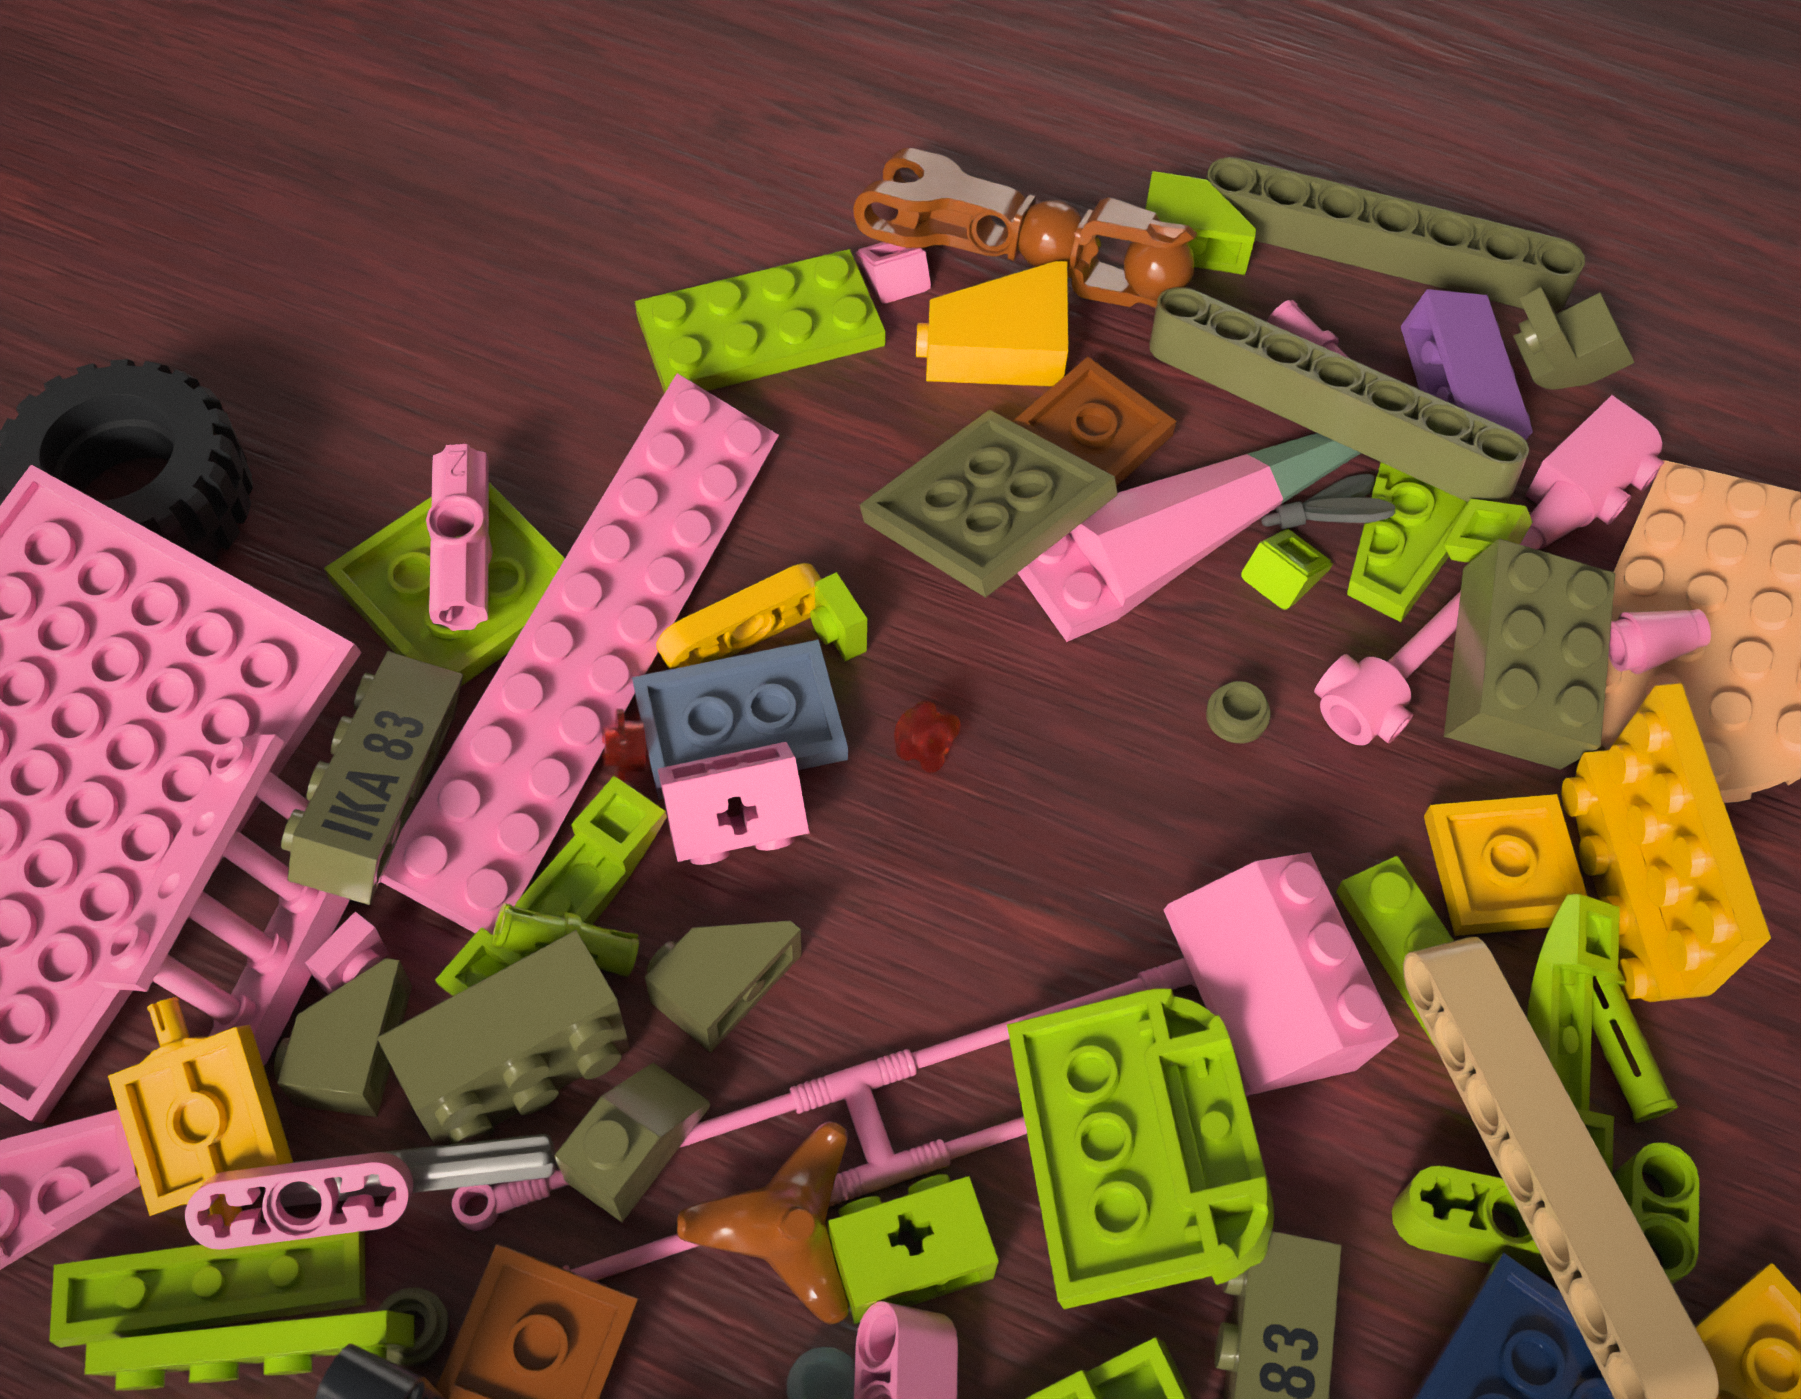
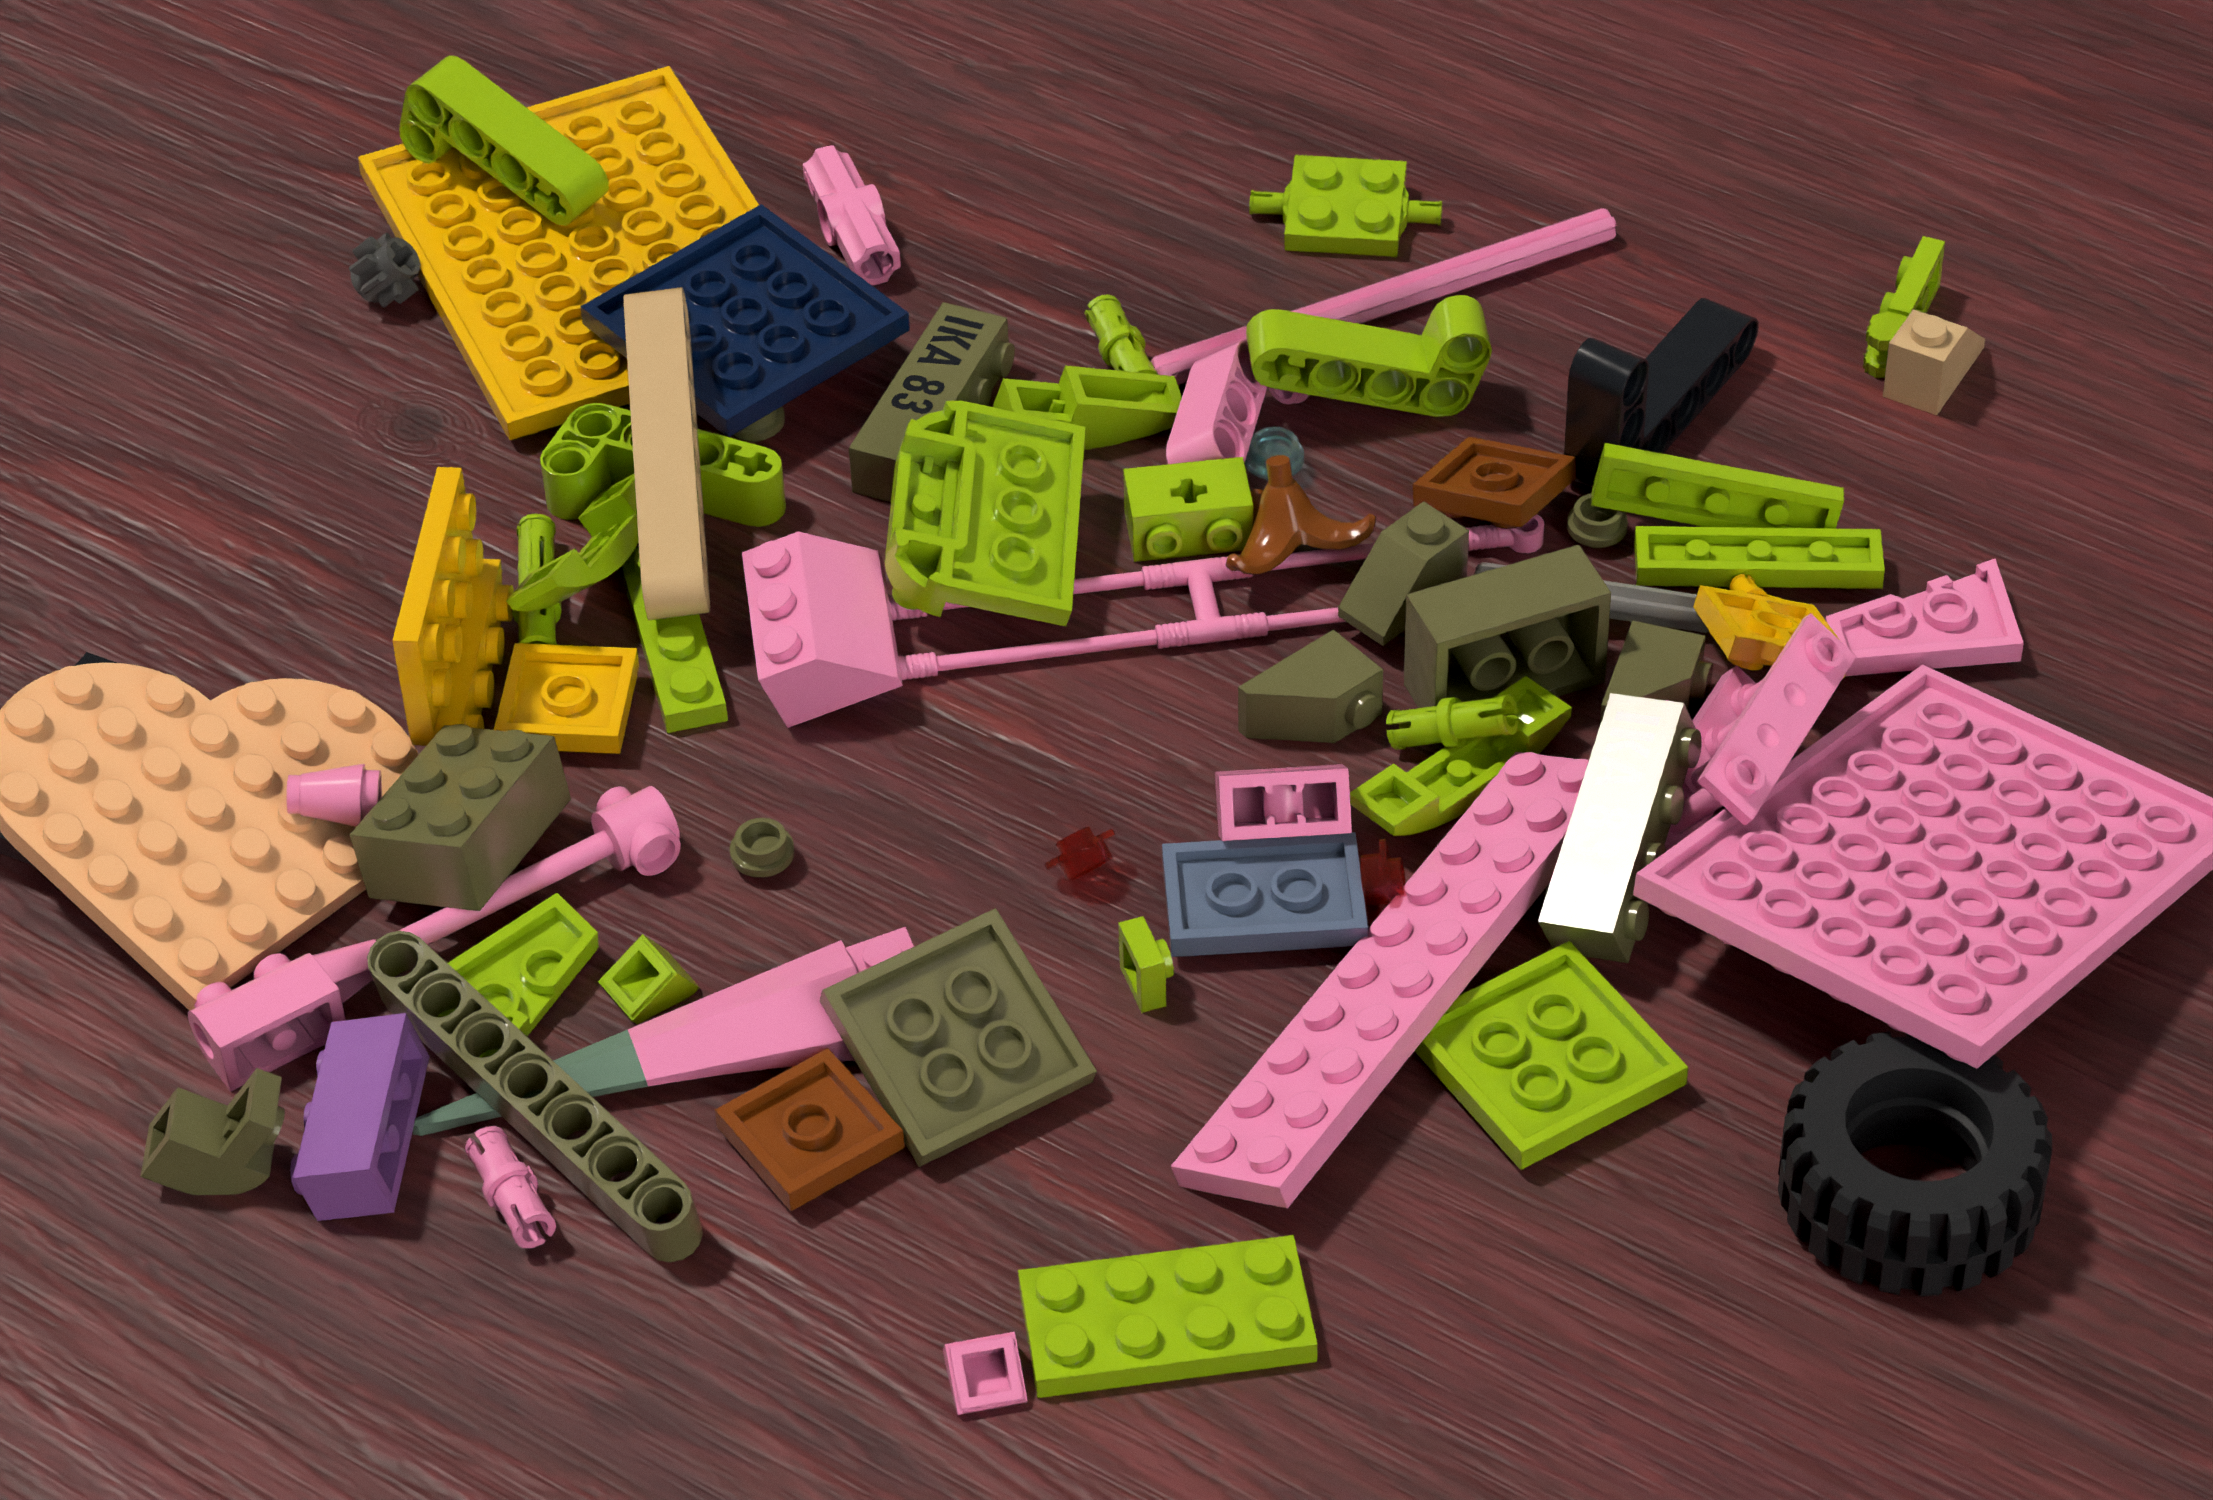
camera: 165 degrees left, 15 degrees down
(243, 1189) = (1683, 564): bright pink beam -> none
(461, 562) = (1536, 1039): bright pink piece -> none
(741, 619) = (1185, 990): yellow beam -> none
(956, 212) = (790, 1328): dark orange piece -> none
(1000, 330) = (878, 1246): yellow slope -> none
(1223, 233) = (600, 1352): lime slope -> none
(1336, 503) = (585, 1016): dark grey piece -> none
(1398, 235) = (359, 1310): olive beam -> none
(1484, 524) = (442, 922): lime plate -> none

